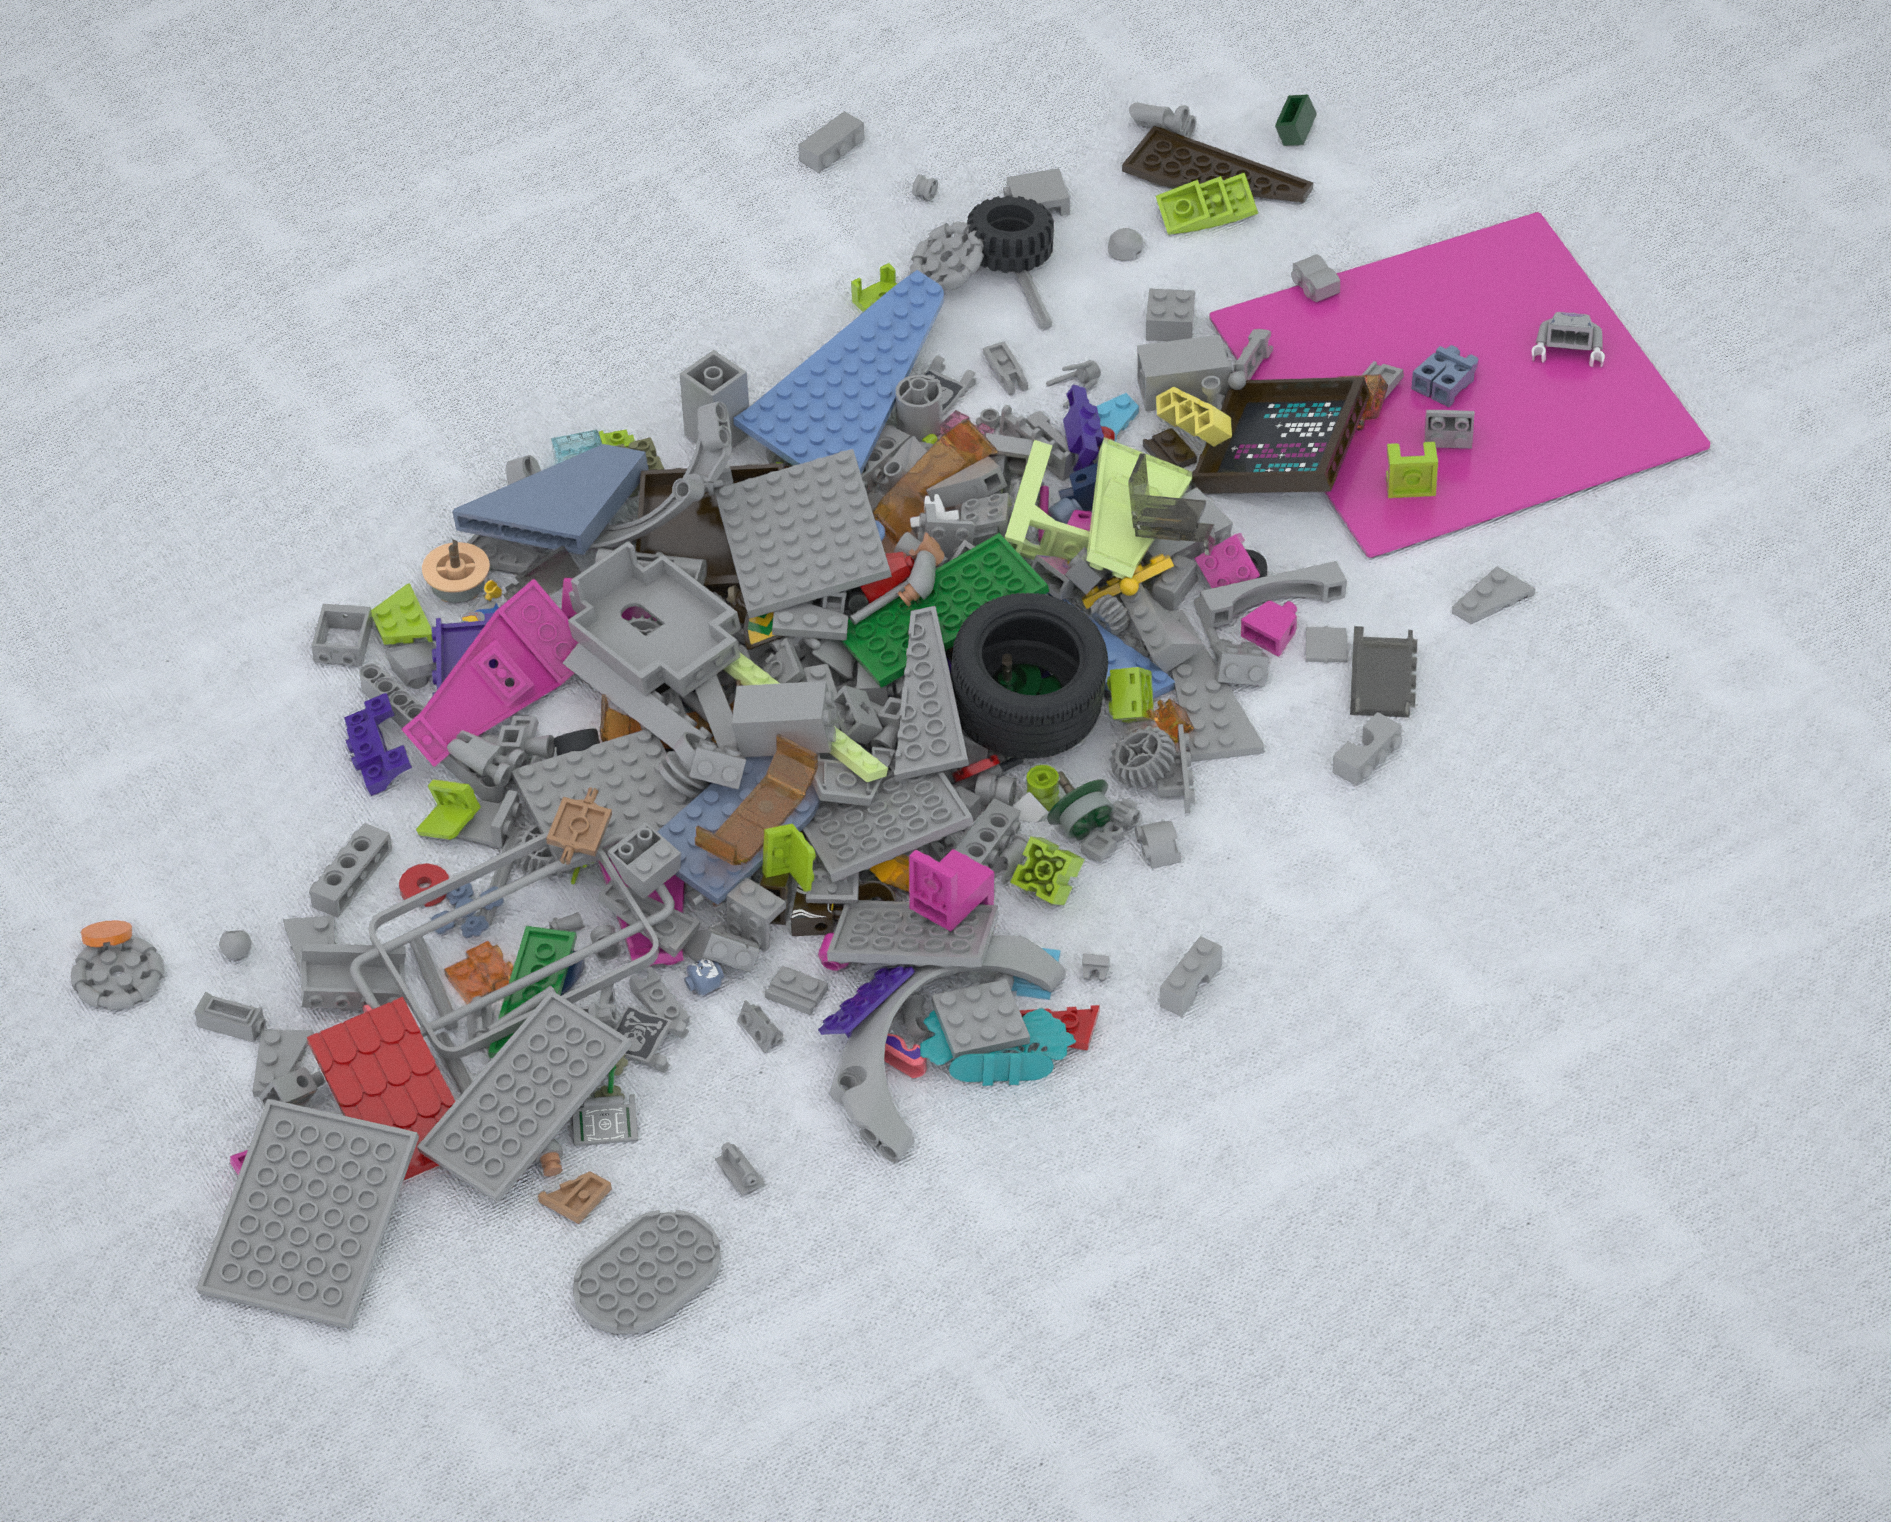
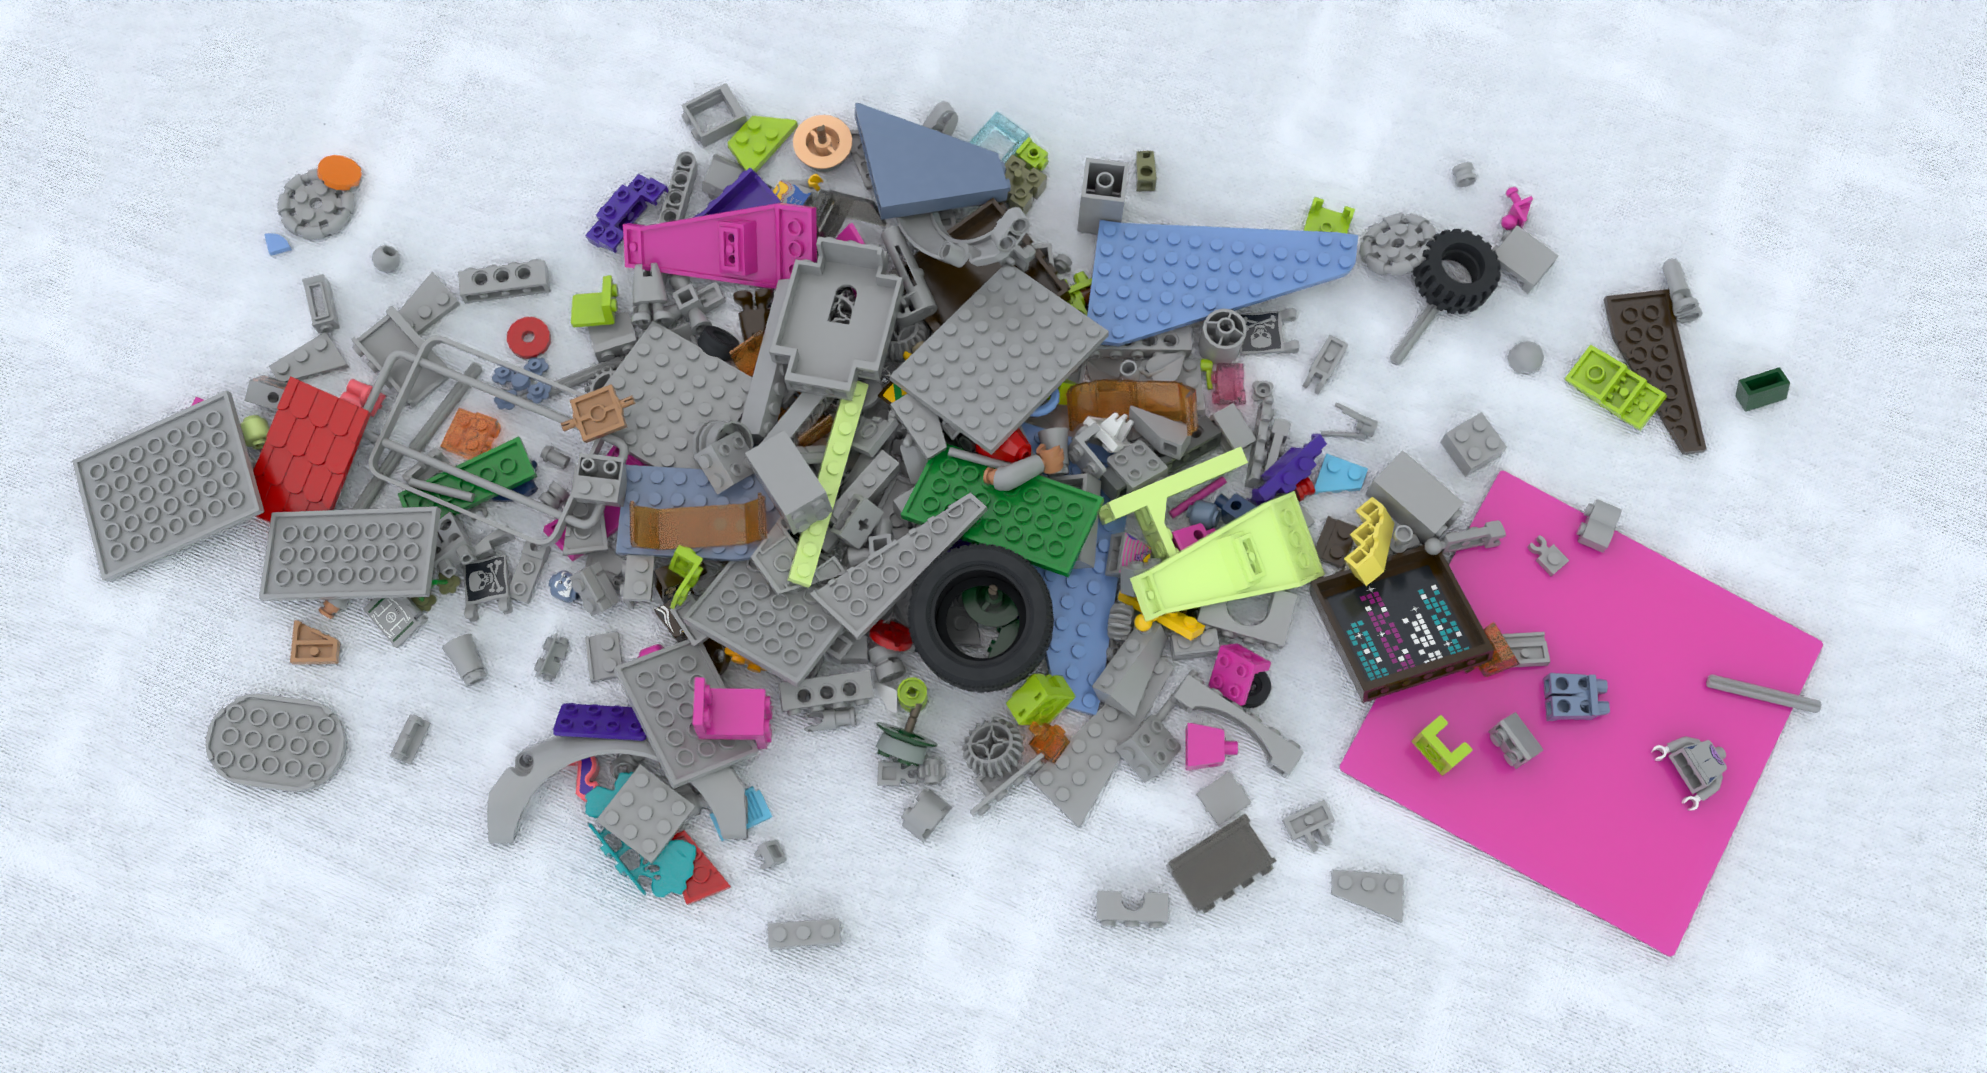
camera: 50 degrees right, 25 degrees up
(126, 1024) = (276, 244): none -> medium blue tile
(571, 712) = (752, 319): none -> dark brown piece
(703, 1085) = (465, 659): none -> light grey plant
(831, 142) = (1456, 77): light grey brick -> none
(994, 175) = (1518, 212): none -> dark pink piece
(1047, 870) = (826, 759): lime brick -> none
(1166, 516) = (1223, 603): clear smoke piece -> none
(1313, 325) = (1550, 558): none -> light grey plate
(1400, 598) = (1308, 821): none -> light grey hinge
(1547, 267) = (1763, 693): none -> light grey axle

